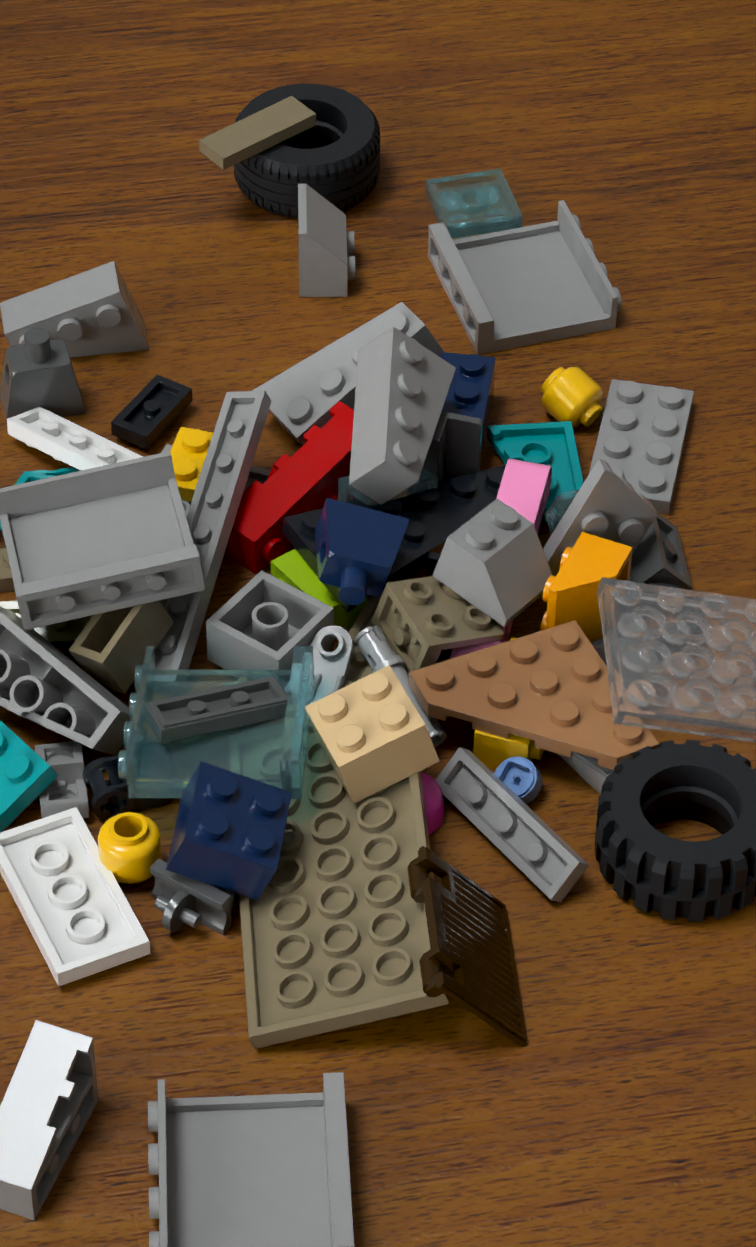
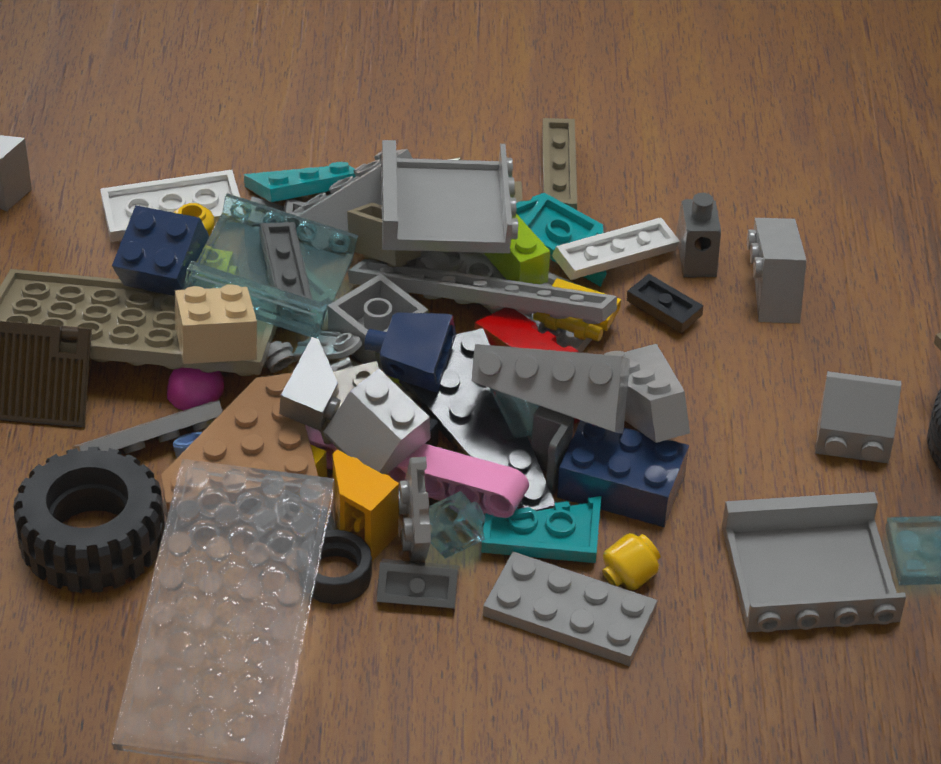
camera: 100 degrees right, 0 degrees up
(463, 616) = (311, 389): none -> slope

